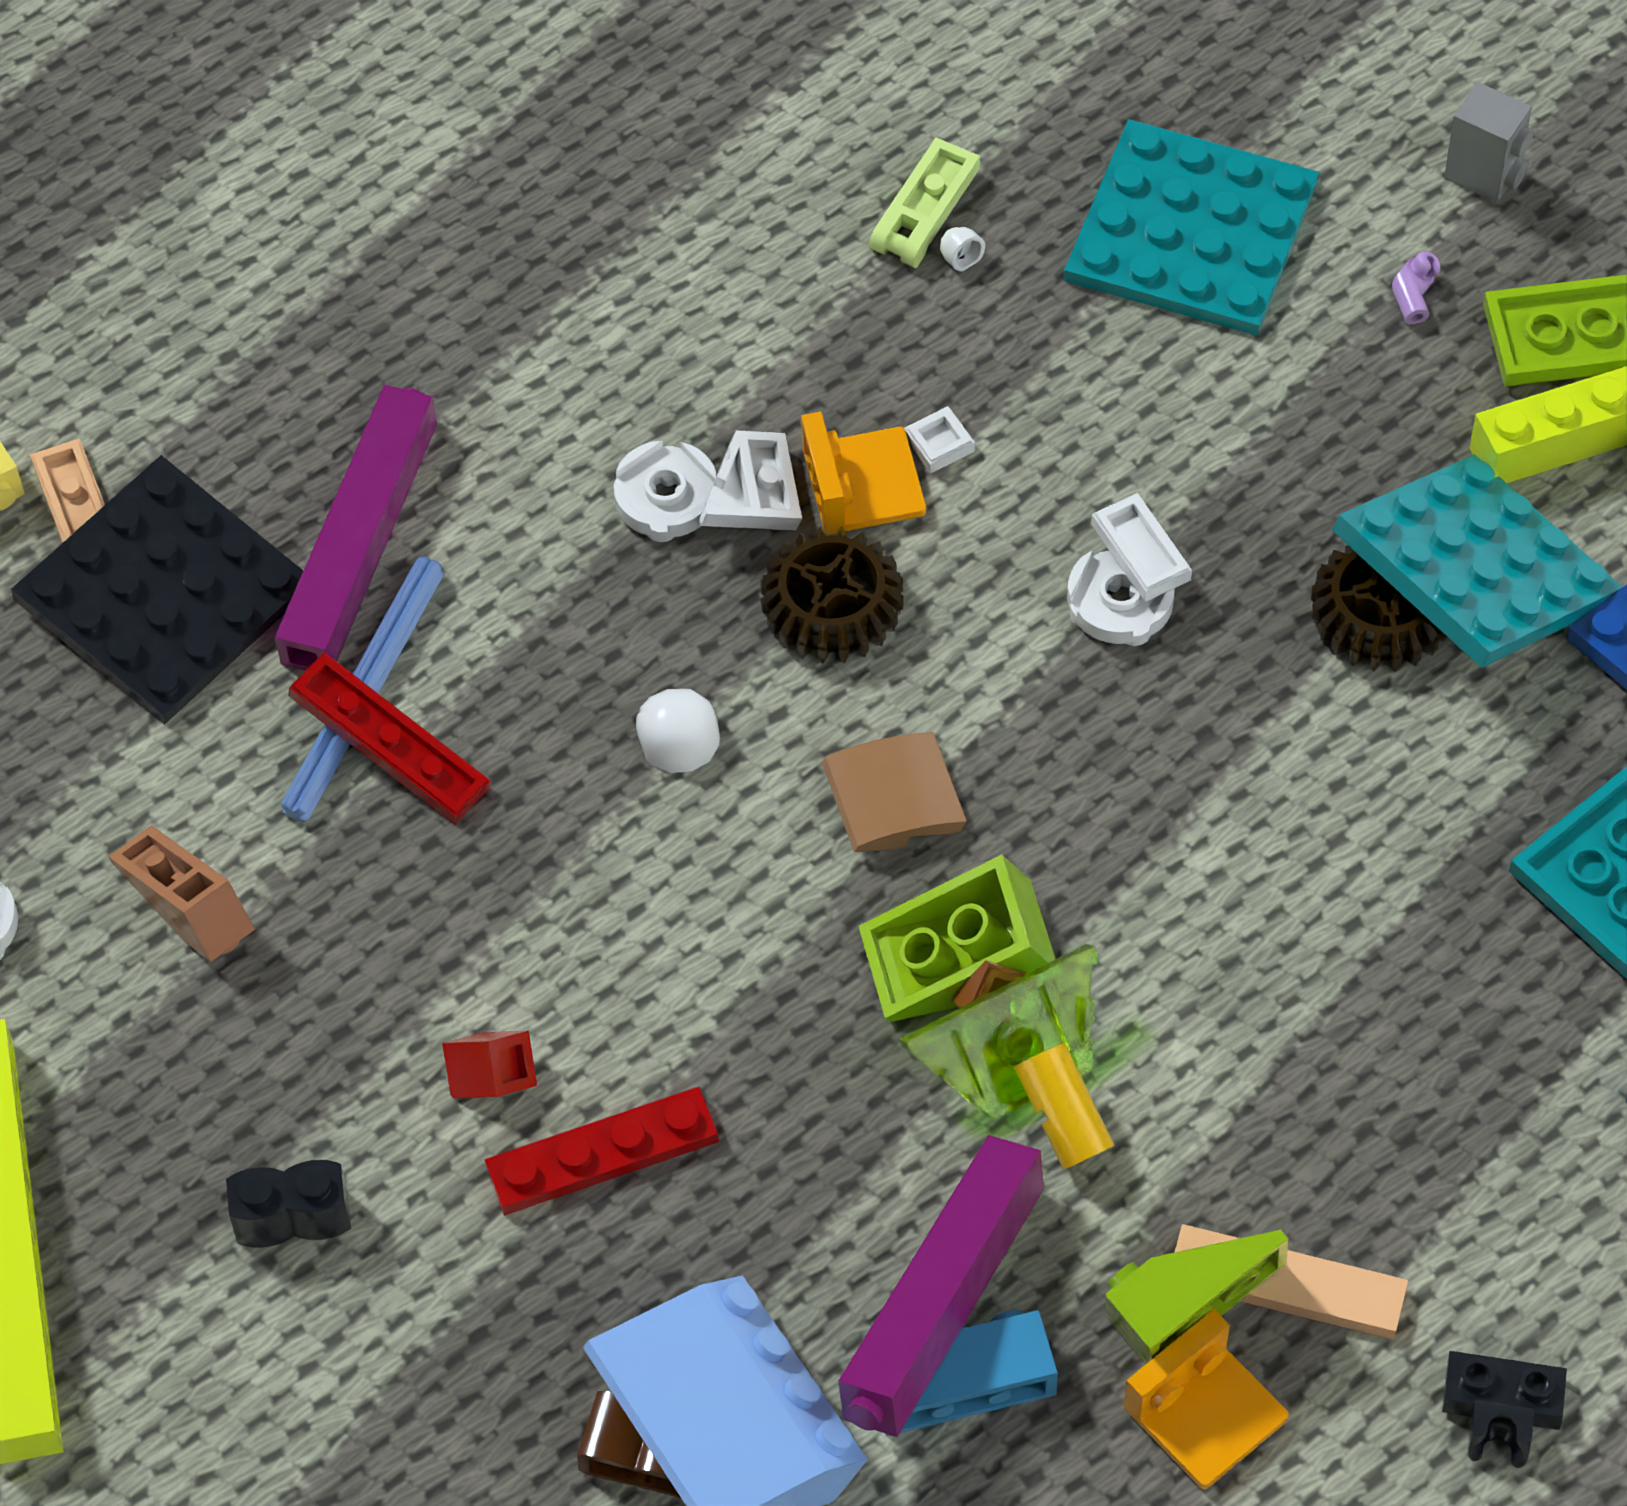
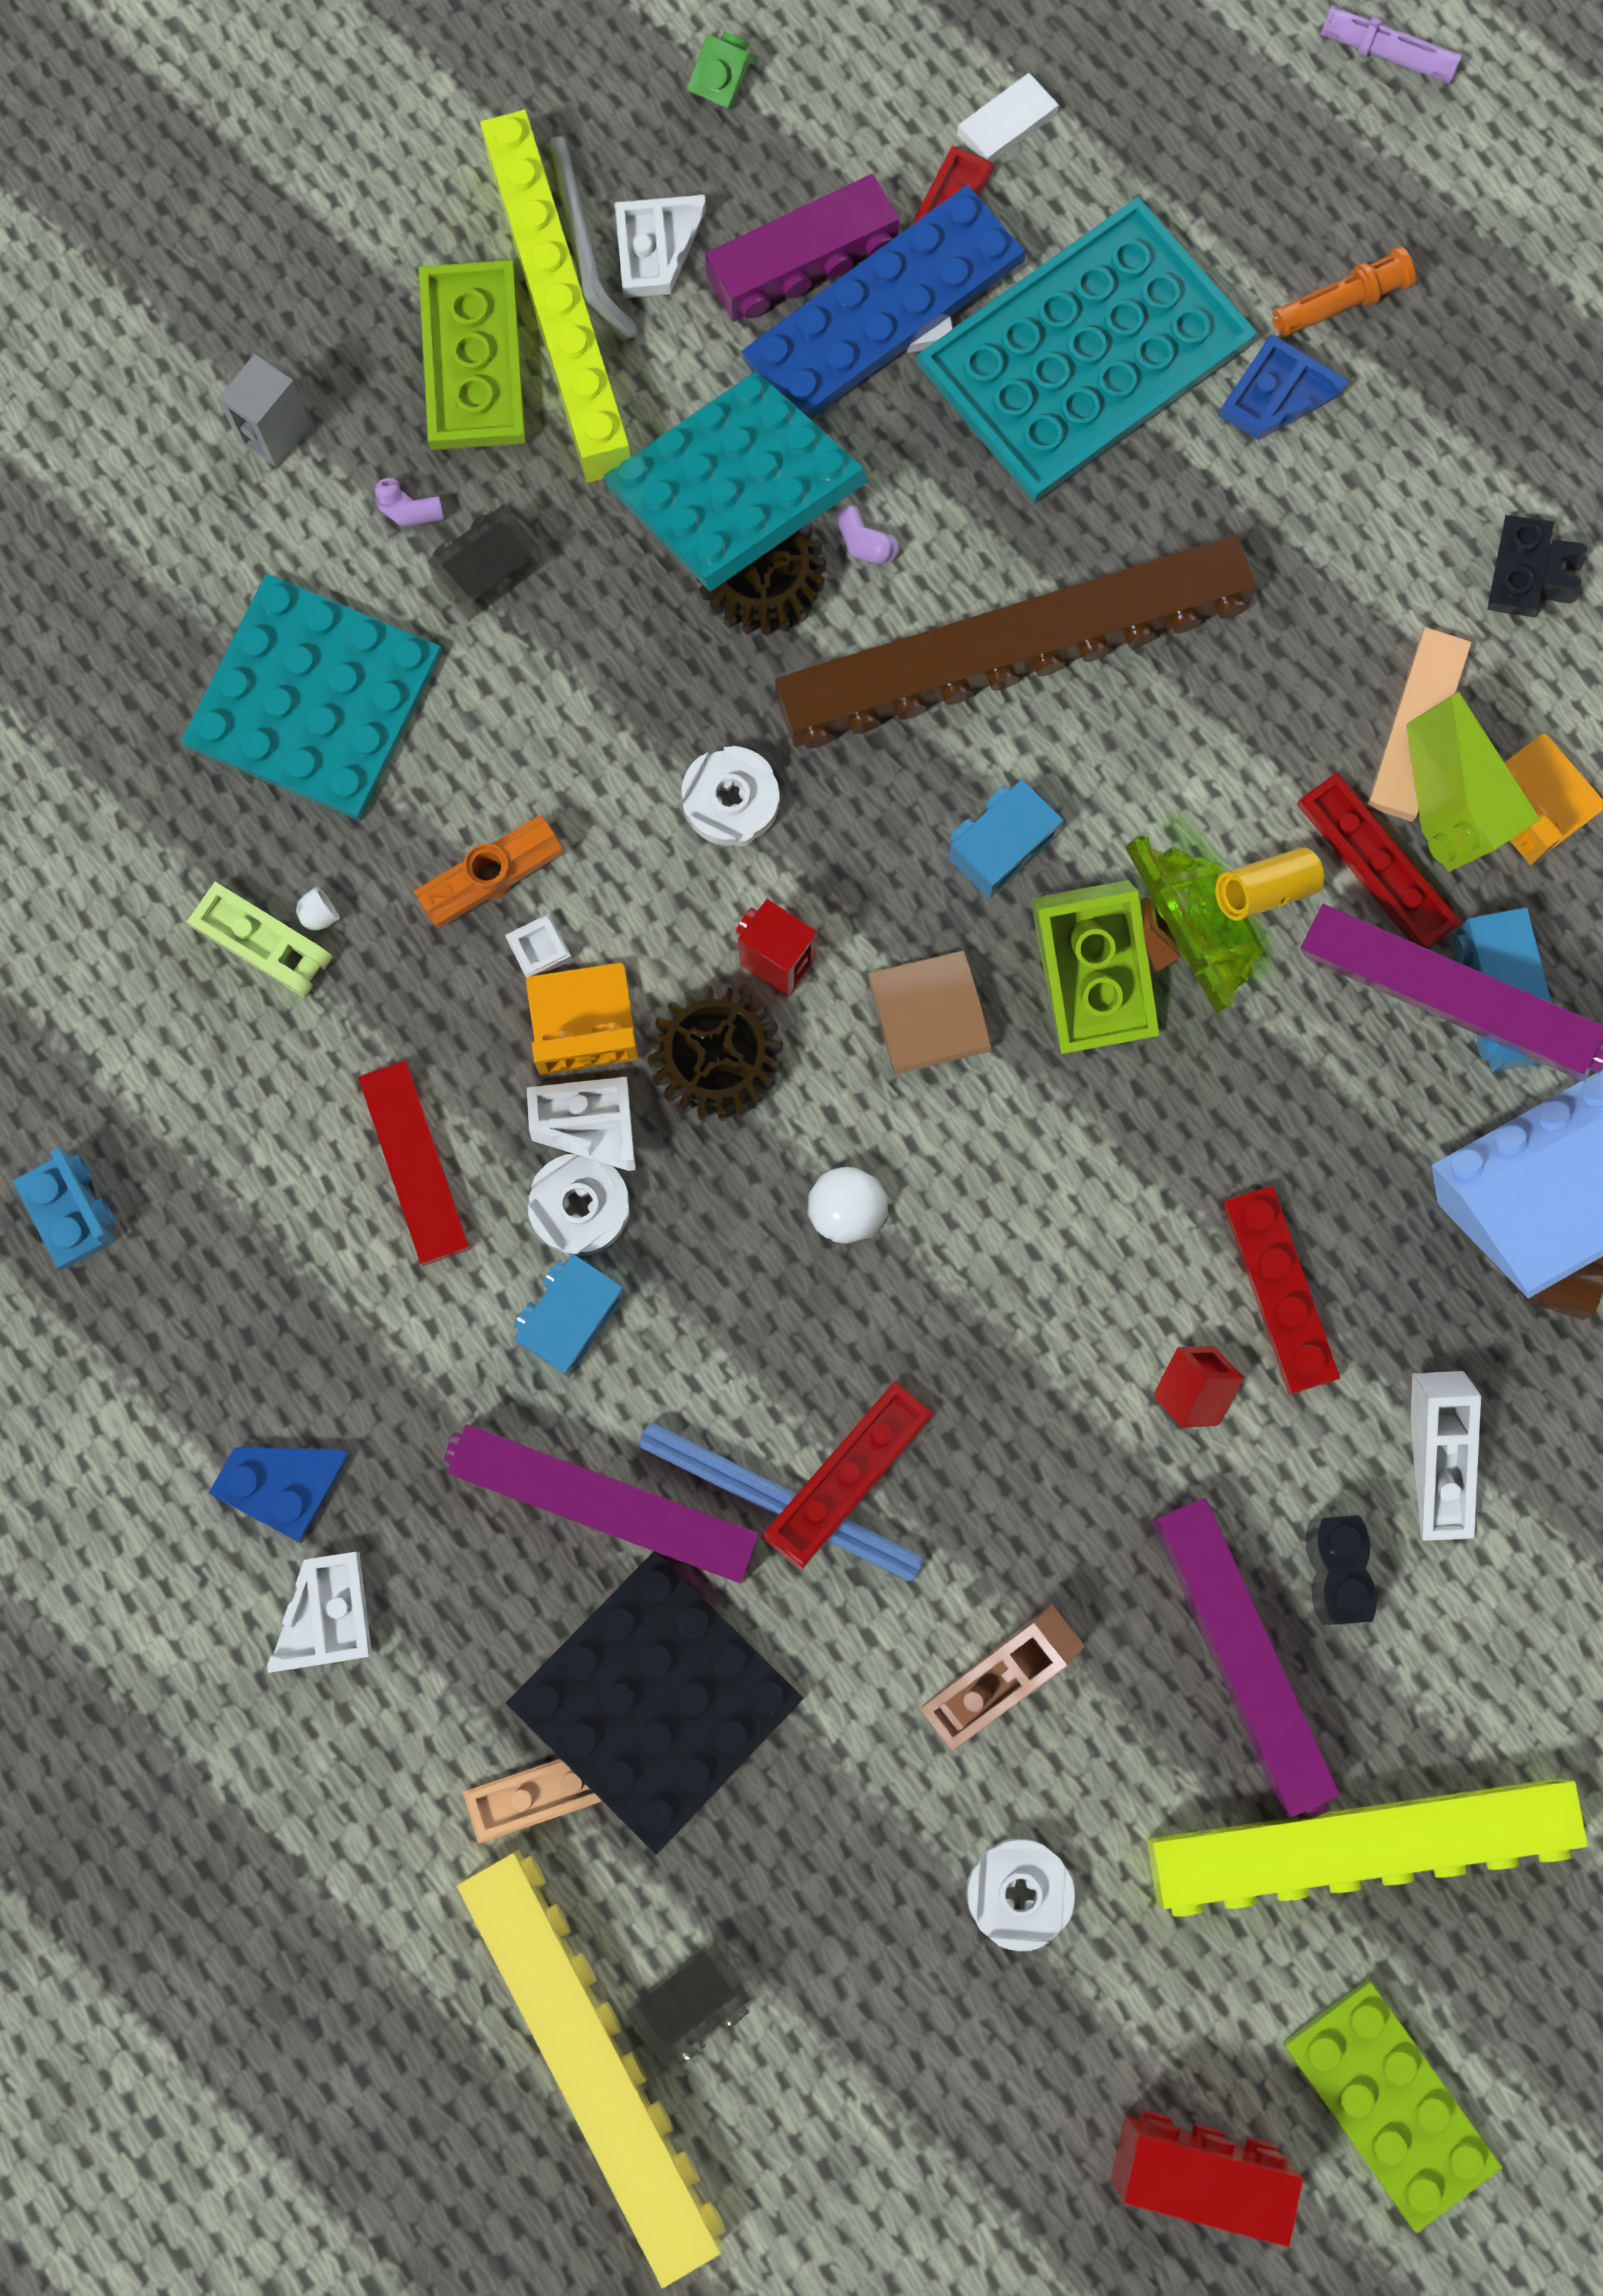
camera: 90 degrees left, 20 degrees up
(196, 1115) = (1246, 1660): none -> magenta brick
(250, 314) = (325, 1617): none -> white wing
(375, 270) = (280, 1485): none -> blue wing
(421, 1310) = (1445, 1453): none -> white slope
(548, 486) = (568, 1314): none -> dark azure brick
(643, 78) = (65, 1209): none -> dark azure bracket
(703, 351) = (414, 1163): none -> red tile
(944, 628) = (776, 946): none -> red brick
(1027, 401) = (517, 855): none -> orange piece
(1096, 849) = (1004, 837): none -> dark azure brick
(1111, 1241) = (1378, 862): none -> red tile
(1141, 547) = (692, 768): white tile -> none
(1333, 858) = (1015, 642): none -> reddish brown brick
(1355, 354) = (485, 562): none -> clear smoke brick
(1434, 702) = (865, 542): none -> lavender arm

